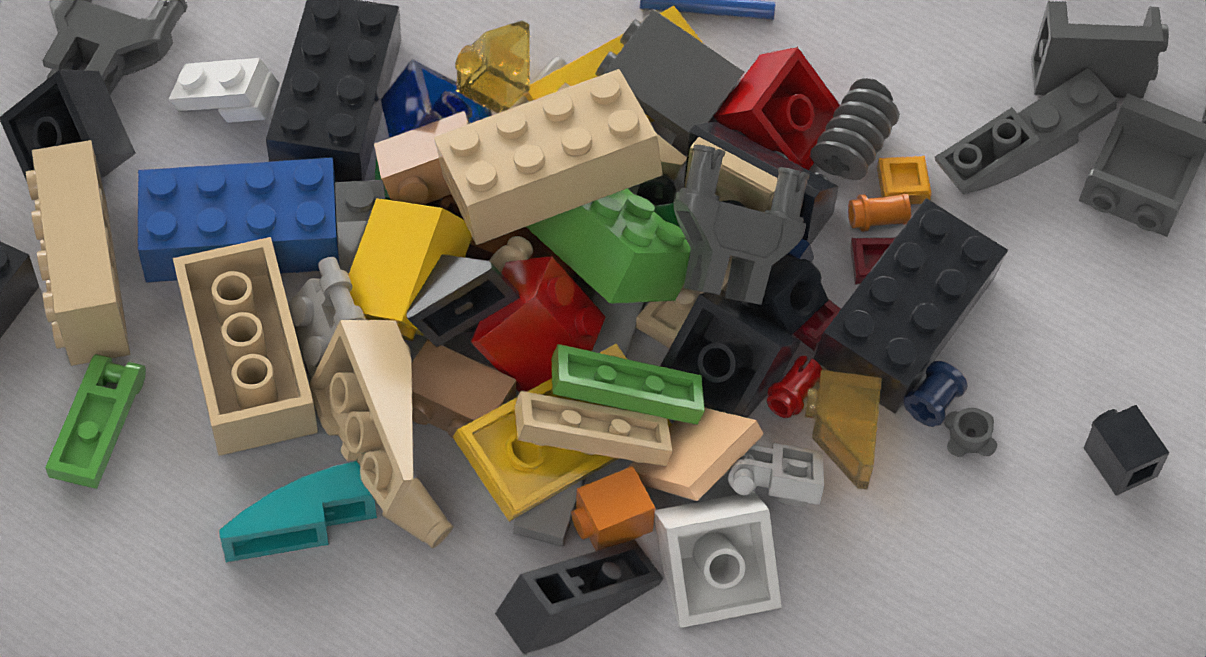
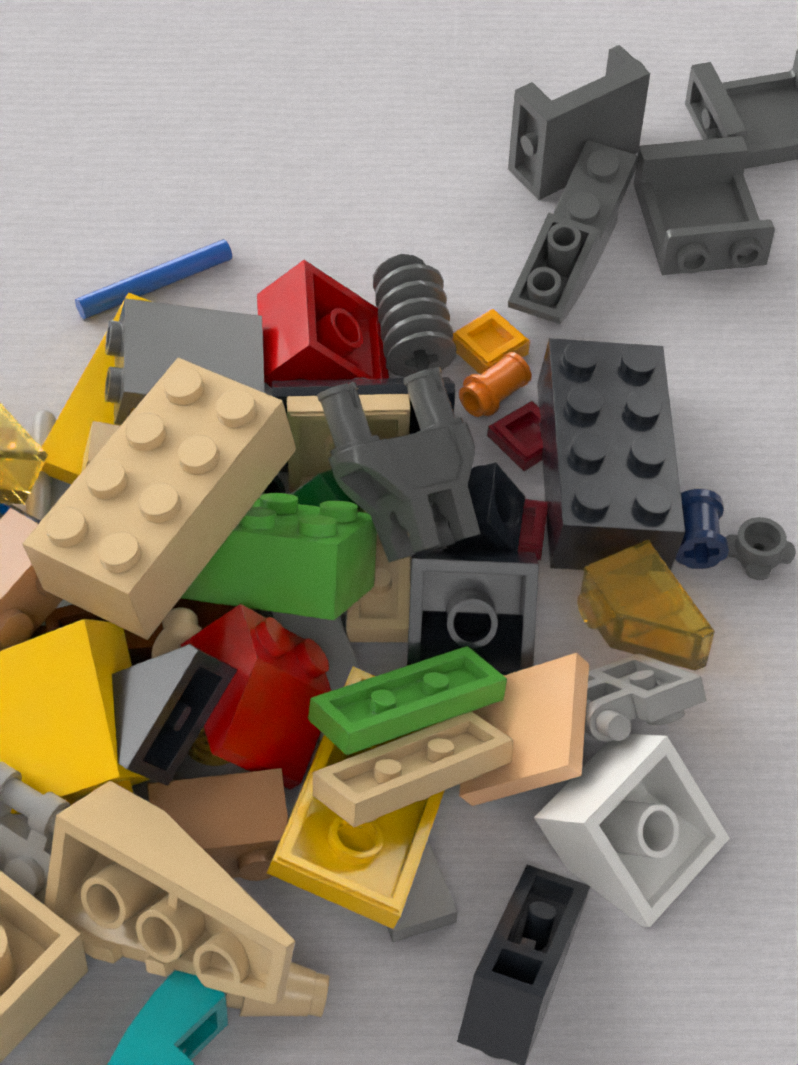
camera: 35 degrees left, 5 degrees down
(613, 510) = (488, 845): orange brick -> none
(787, 396) = (560, 616): red pin -> none

